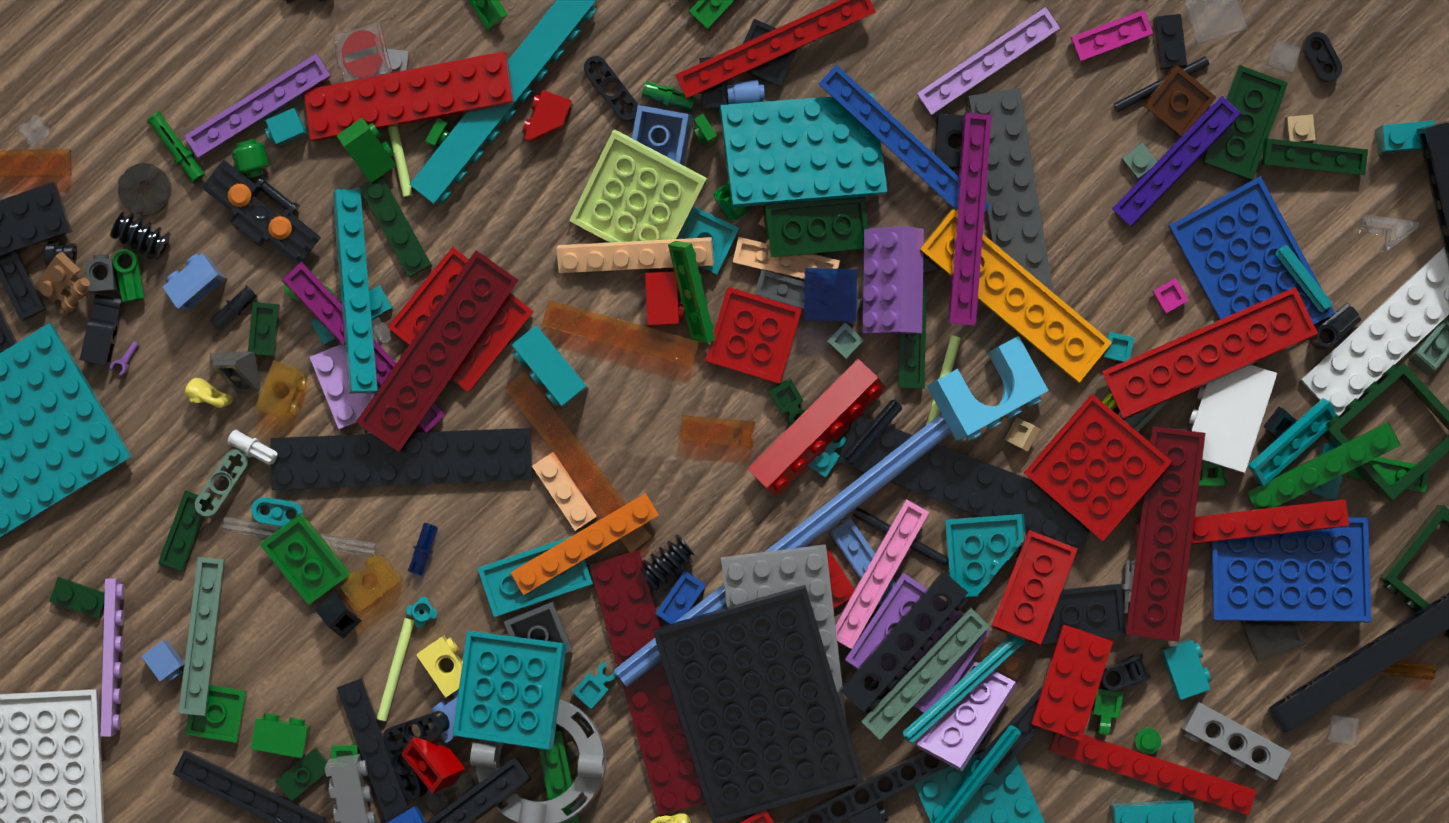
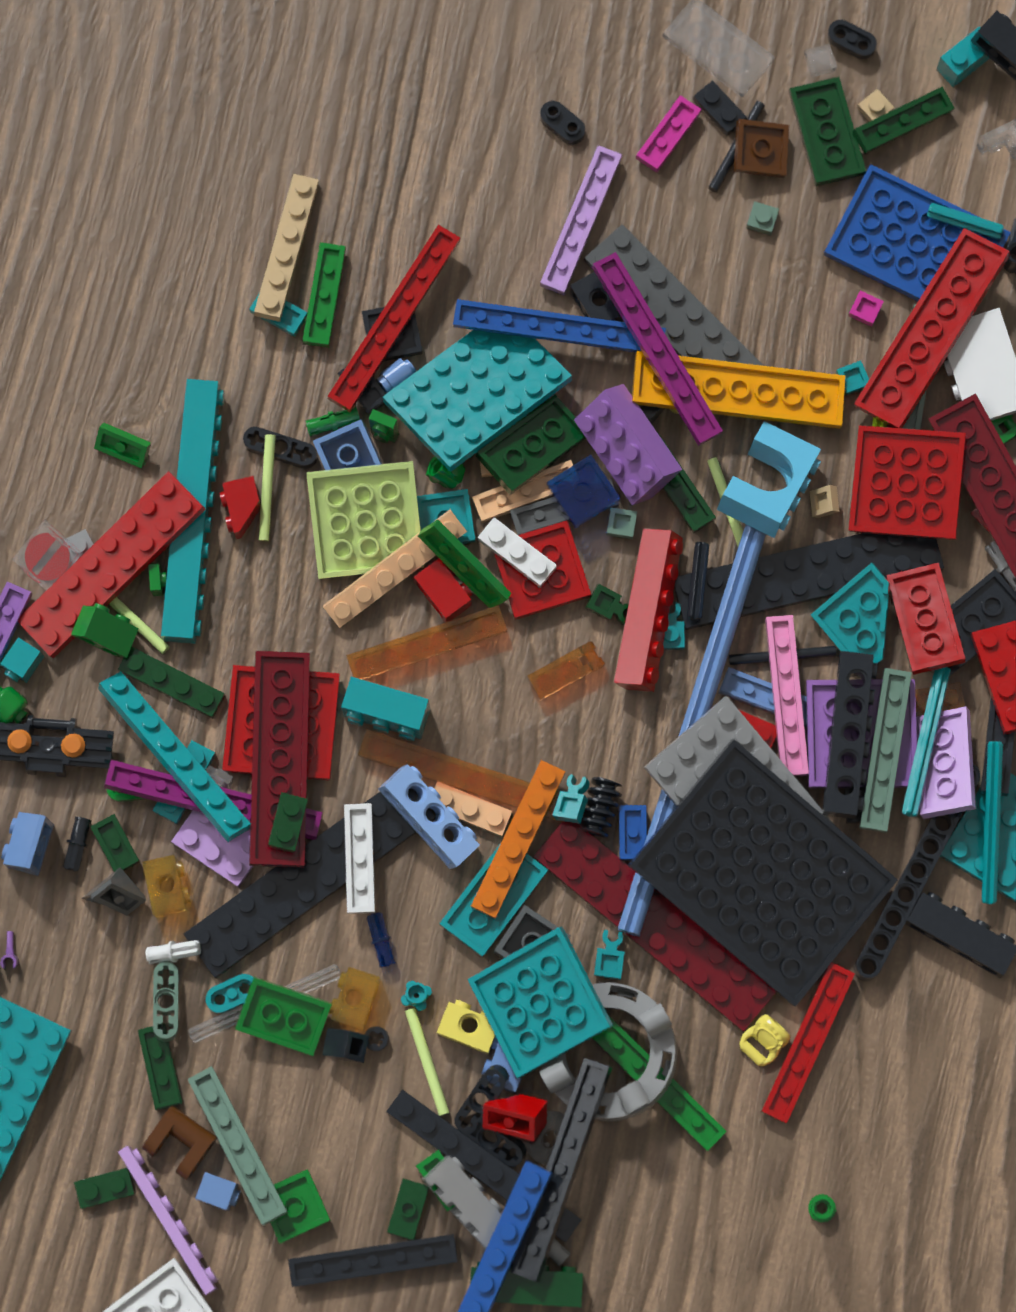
camera: 30 degrees left, 10 degrees down
(170, 598) = (187, 1132): none -> reddish brown connector
(201, 391) = (95, 933): light yellow piece -> none
(281, 736) = (365, 1187): green brick -> none
(373, 618) = (374, 1047): none -> black bush
(407, 409) = (287, 822): none -> dark green plate
(447, 474) = (359, 858): none -> white plate
(512, 440) = (396, 792): none -> light blue brick
(577, 116) = (267, 483): none -> yellowish green bar
(646, 545) = (572, 804): none -> teal plate
(742, 308) = (517, 552): none -> white plate
(1177, 161) = (793, 197): dark purple plate -> none

